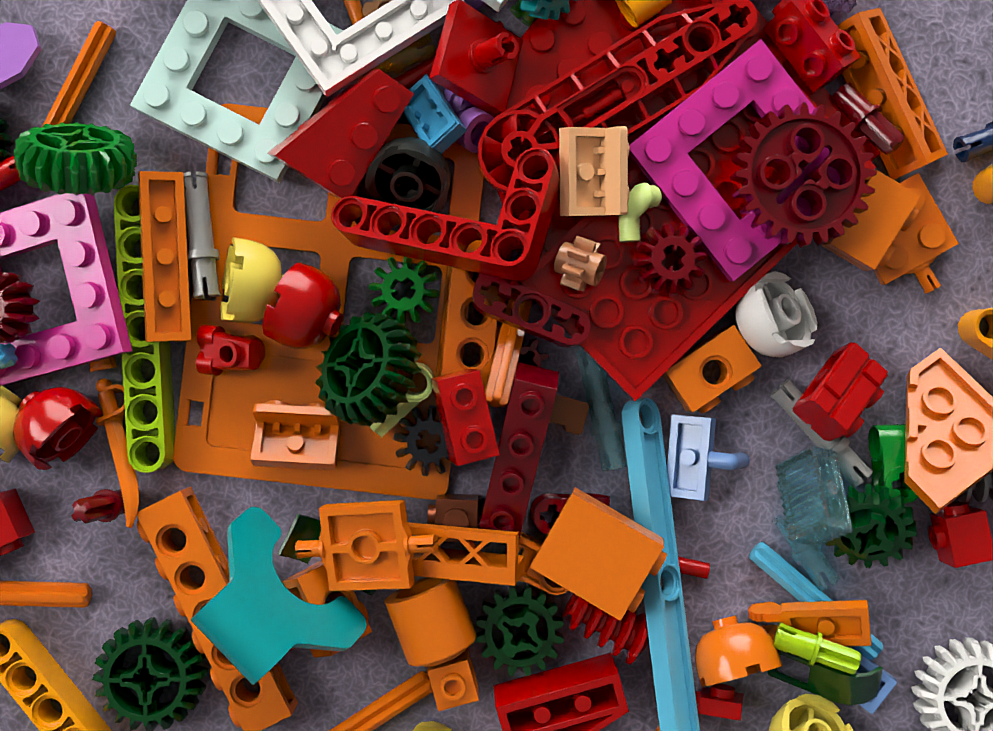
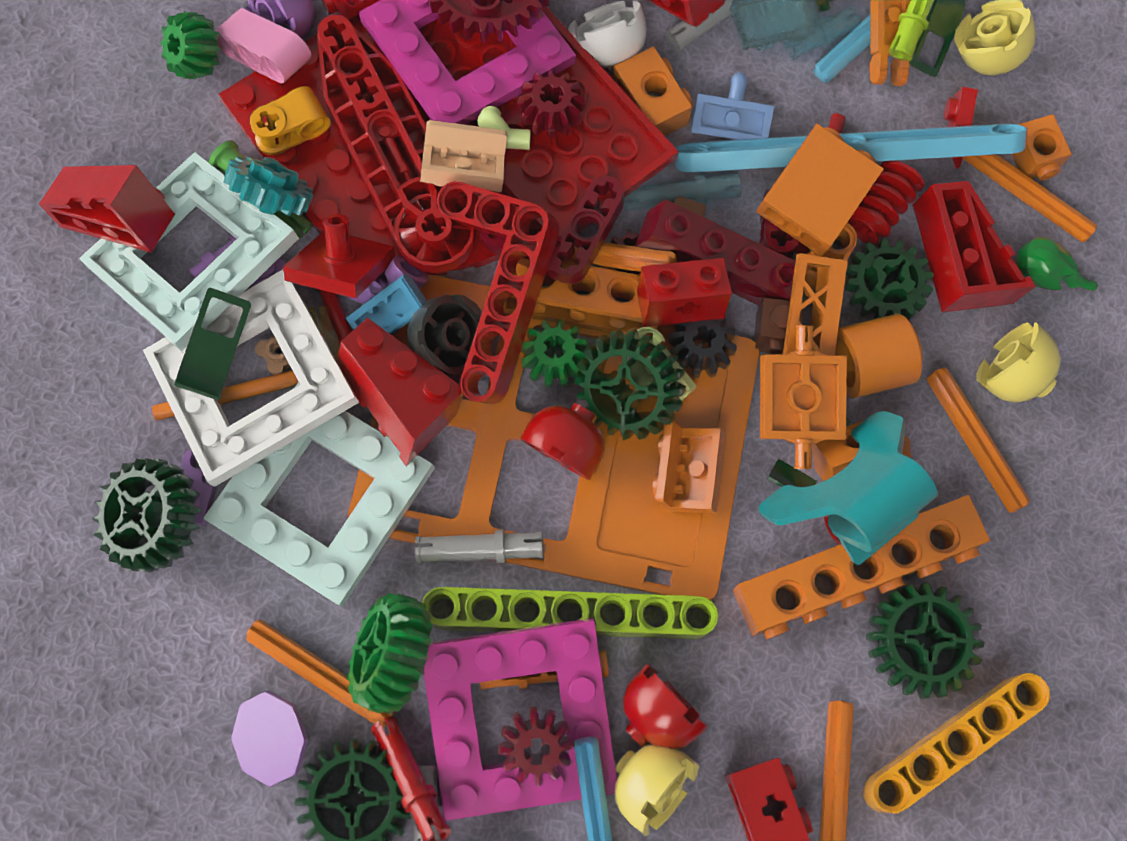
camera: 90 degrees left, 15 degrees down
(102, 507) = (749, 661): dark red axle -> none
(112, 419) = (684, 650): orange sword -> none
(164, 256) = (499, 576): orange fence -> none
(227, 351) = (597, 538): red plate -> none
(249, 281) = (532, 497): light yellow cylinder -> none
(454, 682) = (940, 341): orange brick -> none
(580, 263) = (548, 177): nougat gear -> none
(734, 652) = (915, 93): orange cylinder -> none

